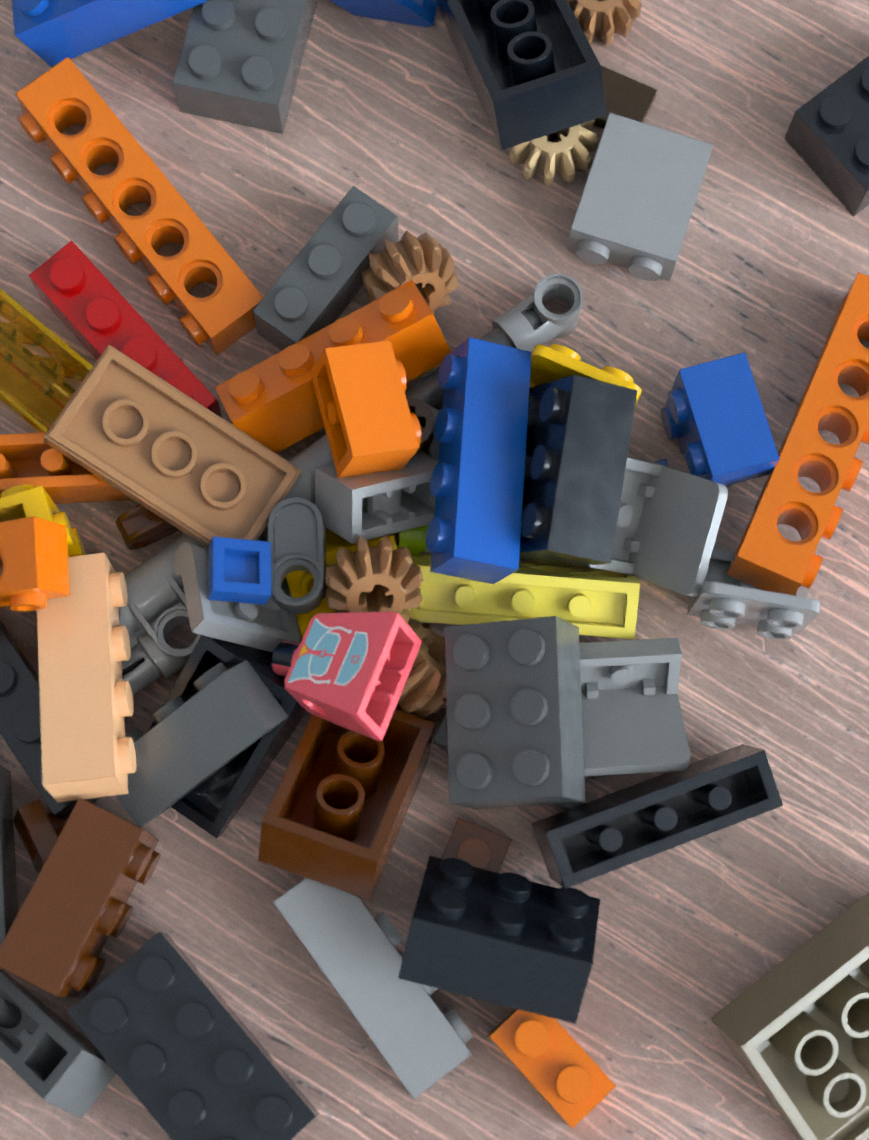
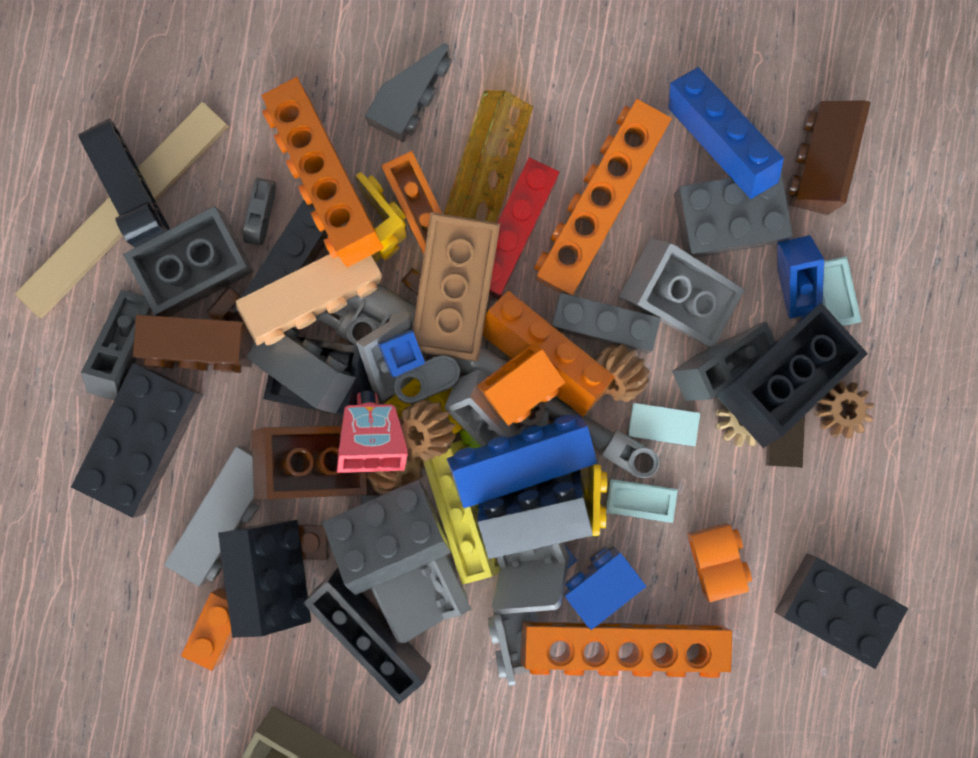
camera: 70 degrees right, 10 degrees up
(322, 146) = (681, 292): none -> light grey slope
(461, 142) = (716, 367): none -> dark grey slope
(513, 257) = (663, 424): none -> light aqua tile
(618, 325) = (641, 500): none -> light aqua tile
(639, 198) = (728, 484): light grey brick -> none
(749, 257) = (719, 561): none -> orange brick

